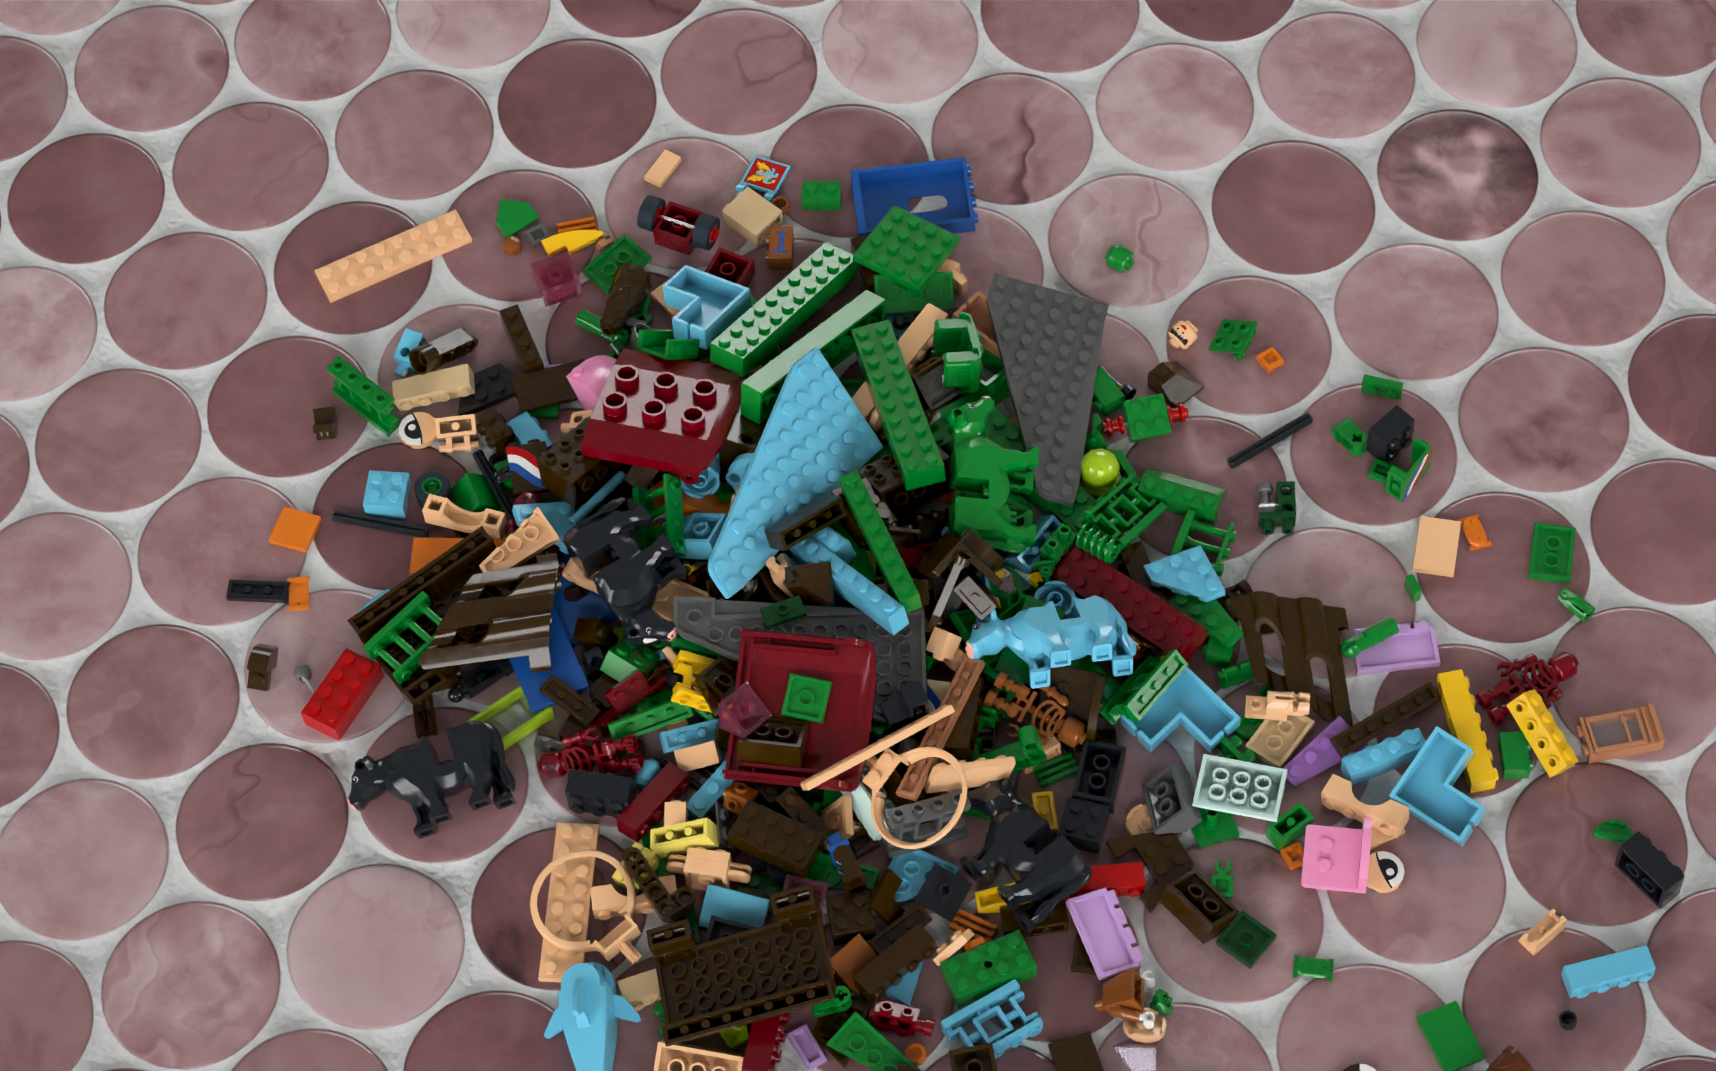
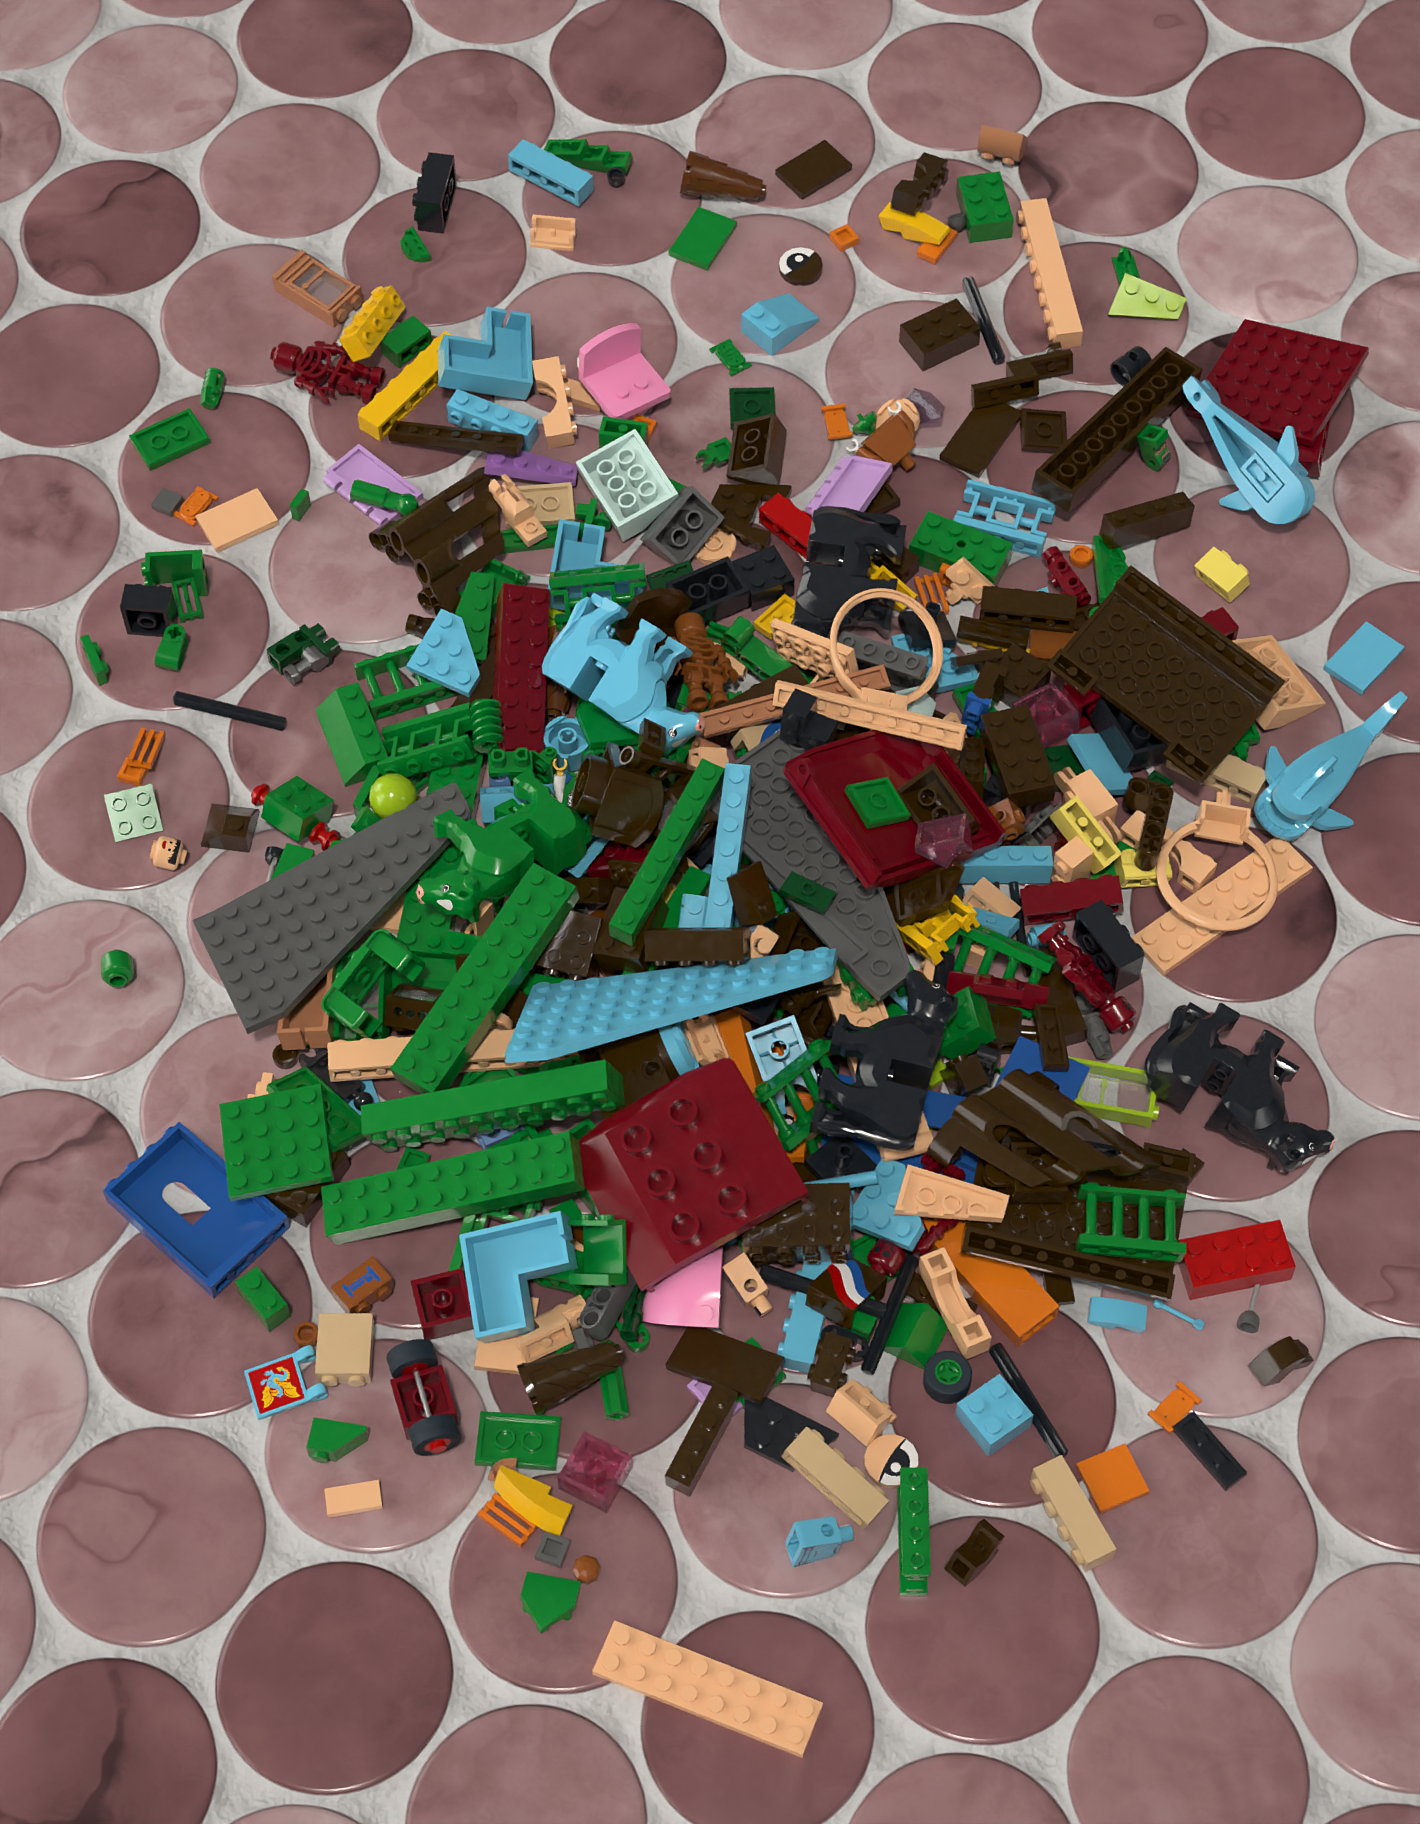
camera: 135 degrees left, 0 degrees up
(296, 490) = (1073, 1514): none -> tan brick
(329, 648) = (1198, 1323): none -> medium azure hinge
(442, 350) = (786, 1502): dark brown beam -> none
(658, 314) = (552, 1330): none -> light nougat plate
(704, 177) = (334, 1439): none -> green slope
(1137, 770) = (659, 578): none -> dark green plate
(1184, 989) = (836, 421): none -> orange piece
(1285, 369) = (151, 735): none -> orange tile
(1315, 1022) = (776, 322): none -> medium azure slope
(1491, 515) = (167, 502): none -> dark grey tile
(1610, 1018) = (588, 156): none -> green slope

